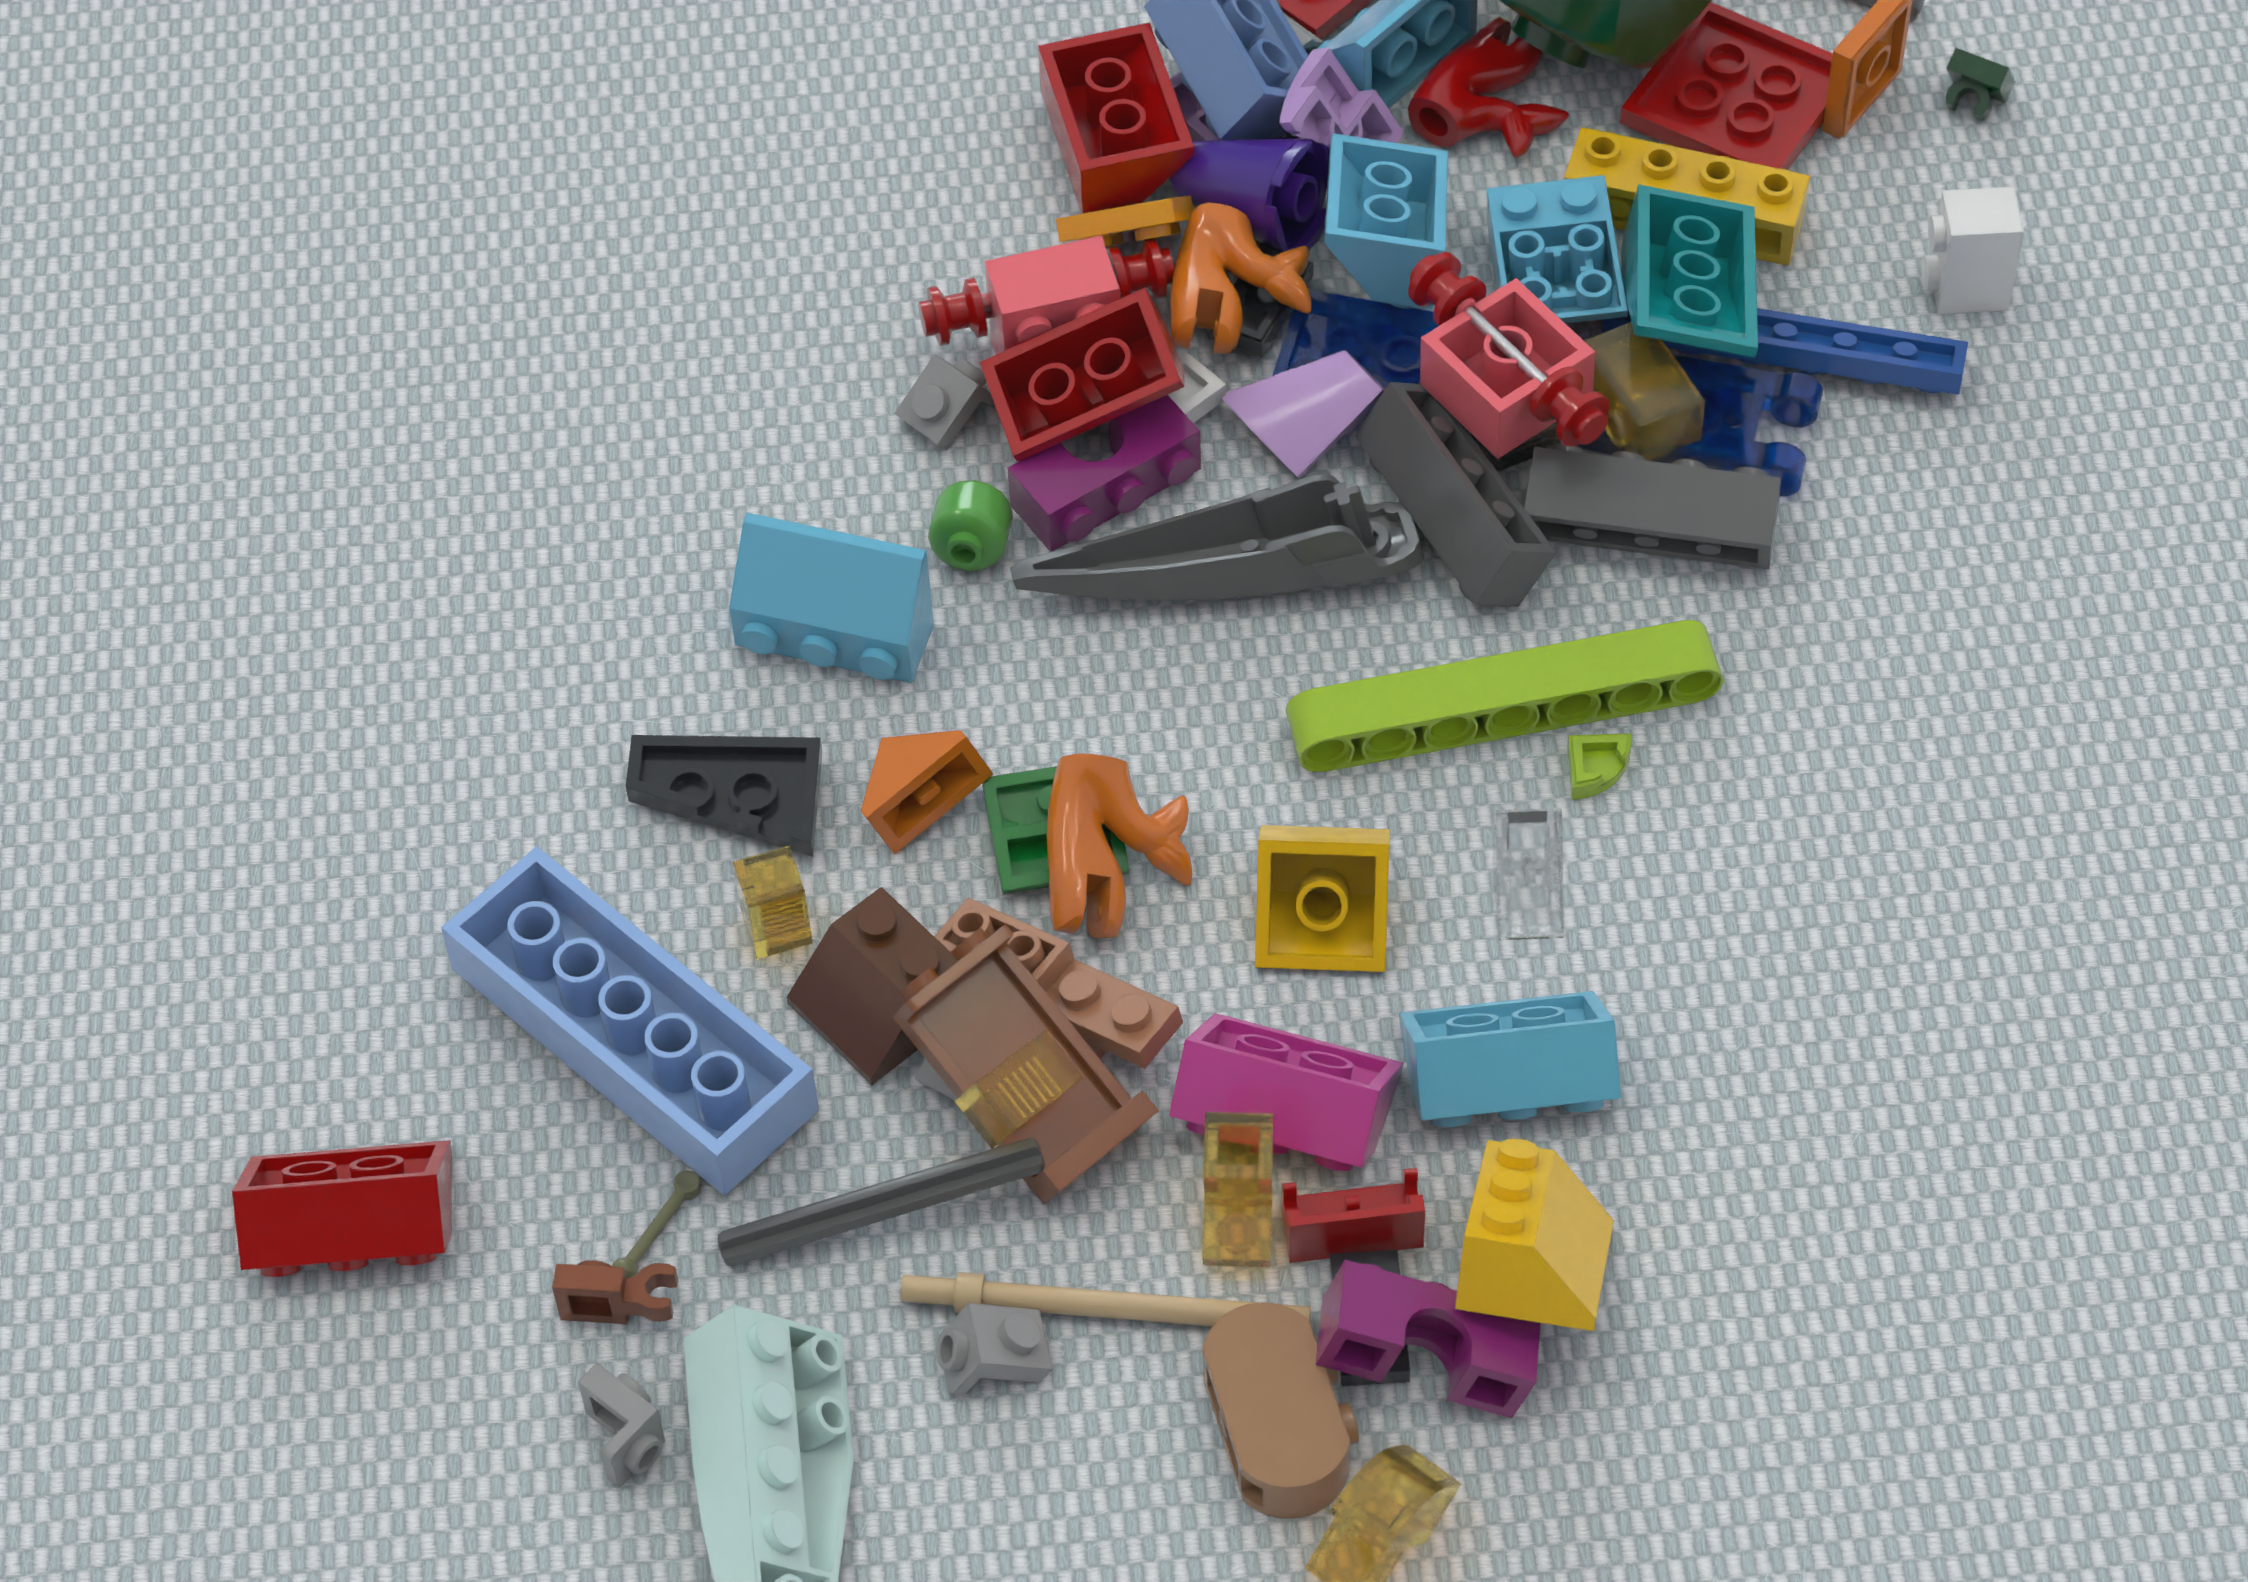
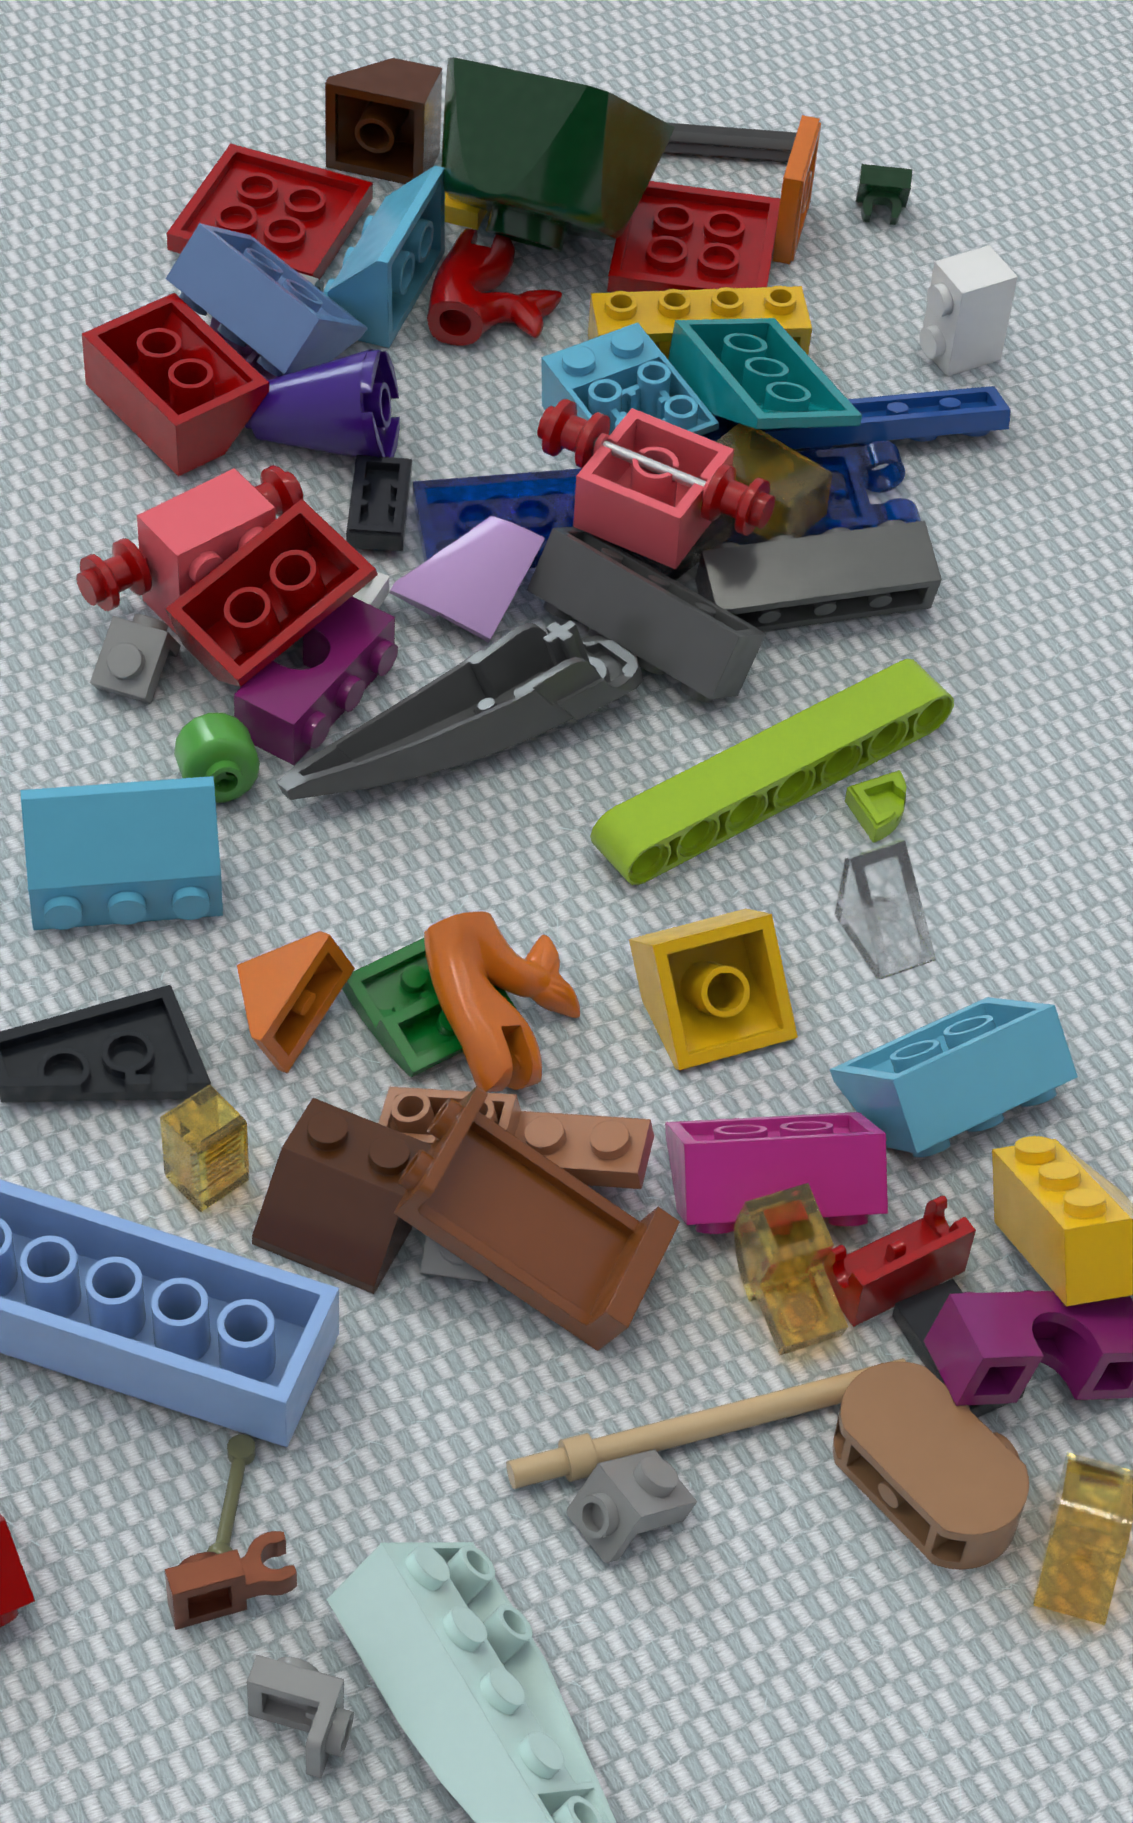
camera: 30 degrees left, 5 degrees down
(881, 1201) = (451, 1399): dark grey axle -> none
(1019, 1088) = (548, 1242): clear yellow piece -> none
(1146, 219) = (252, 452): light orange plate -> none
(1201, 292) = (331, 468): orange piece -> none
(1327, 102) = (368, 325): lavender slope -> none
(1385, 212) = (477, 398): medium azure slope -> none

